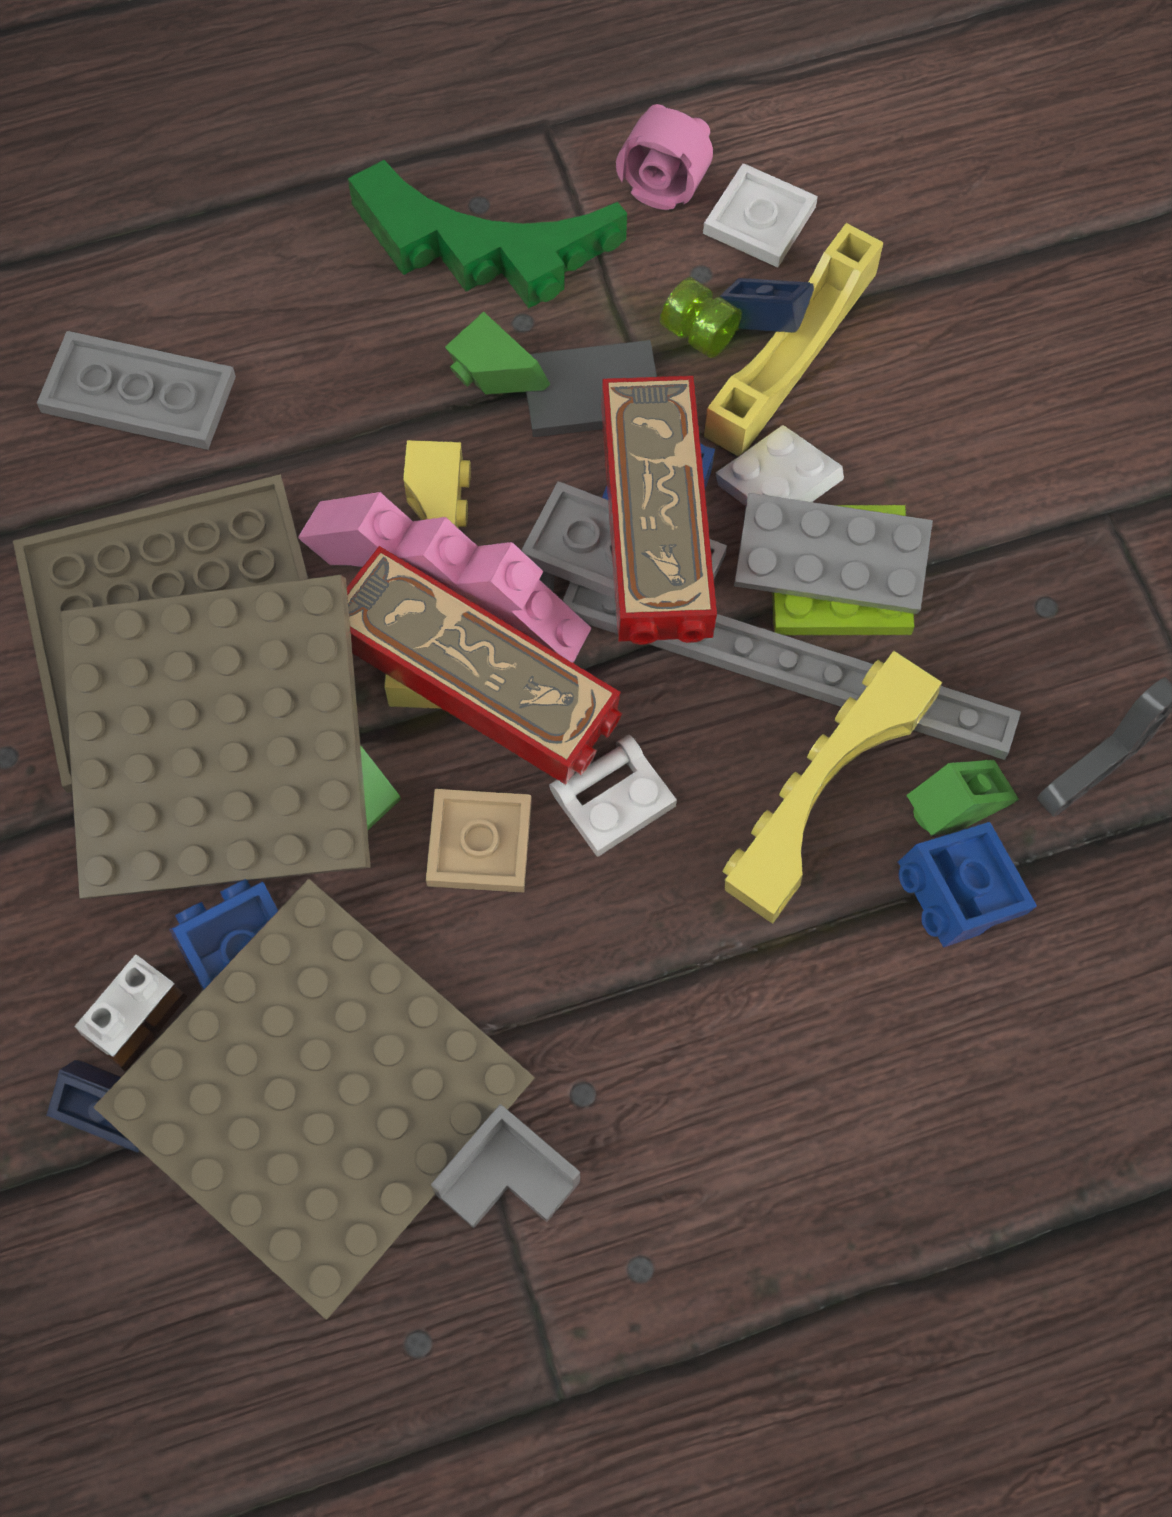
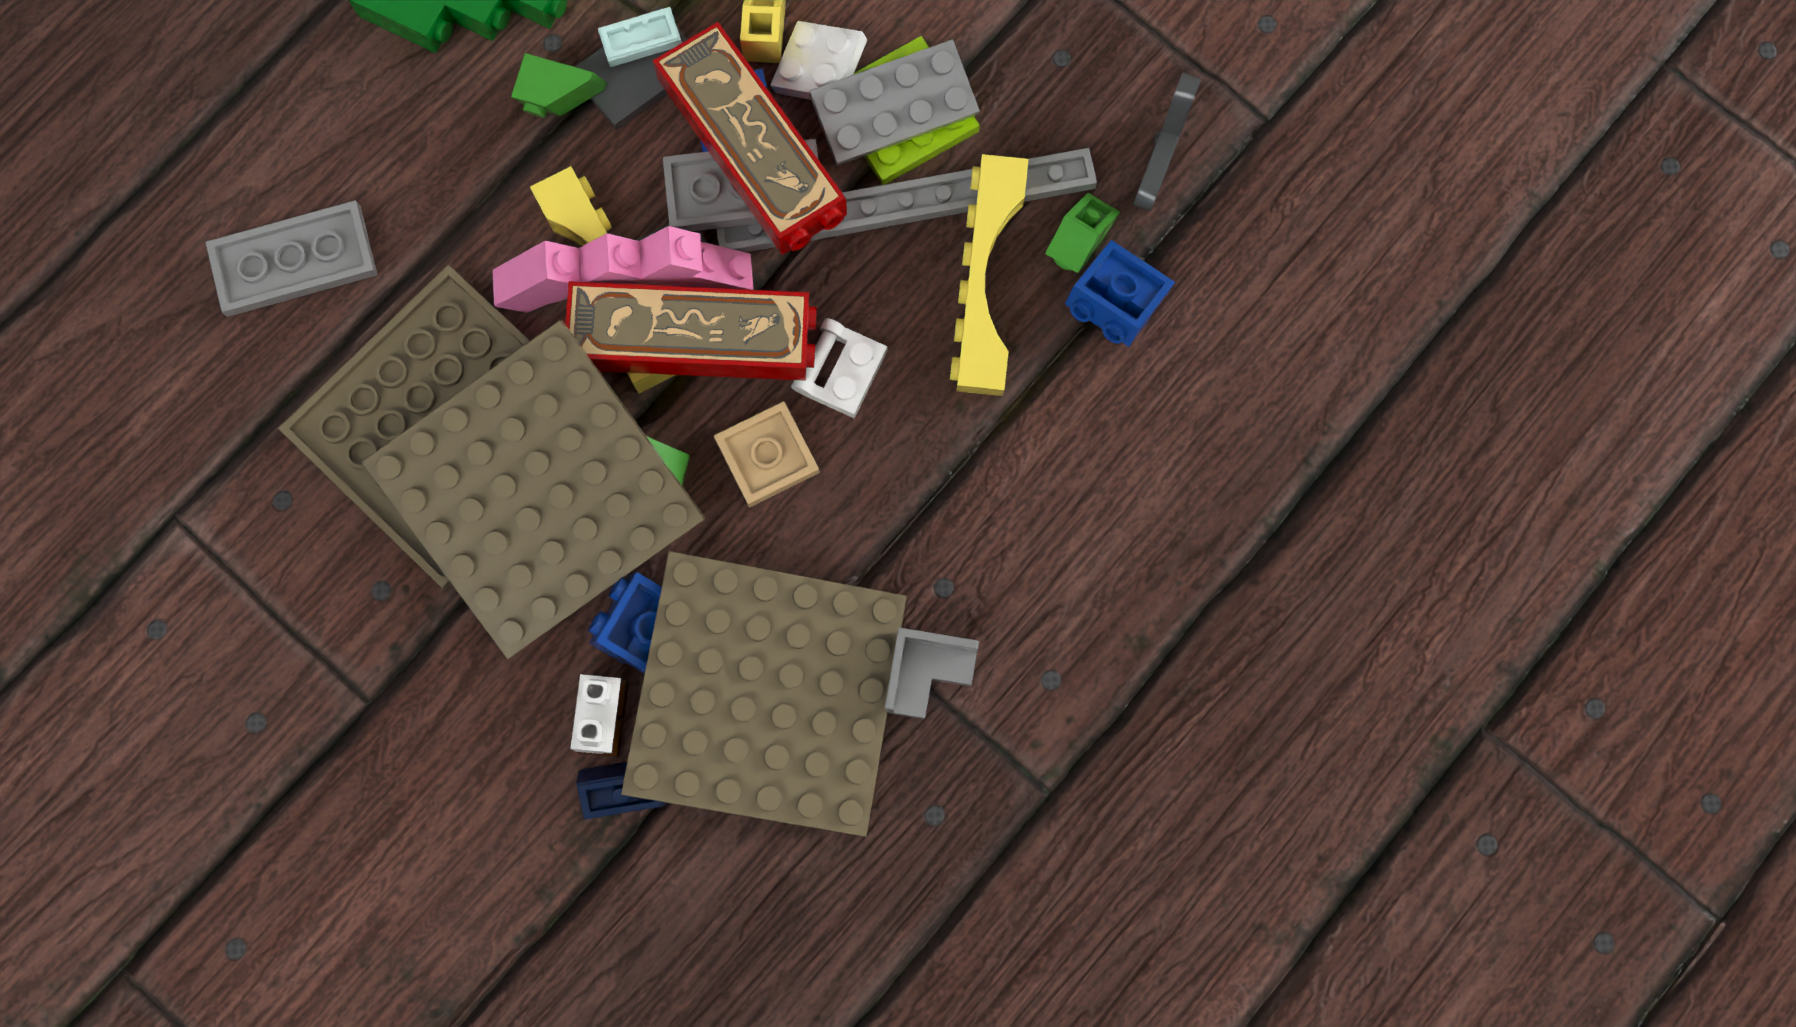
camera: 30 degrees left, 10 degrees up
(608, 355) = (639, 36): none -> light aqua plate

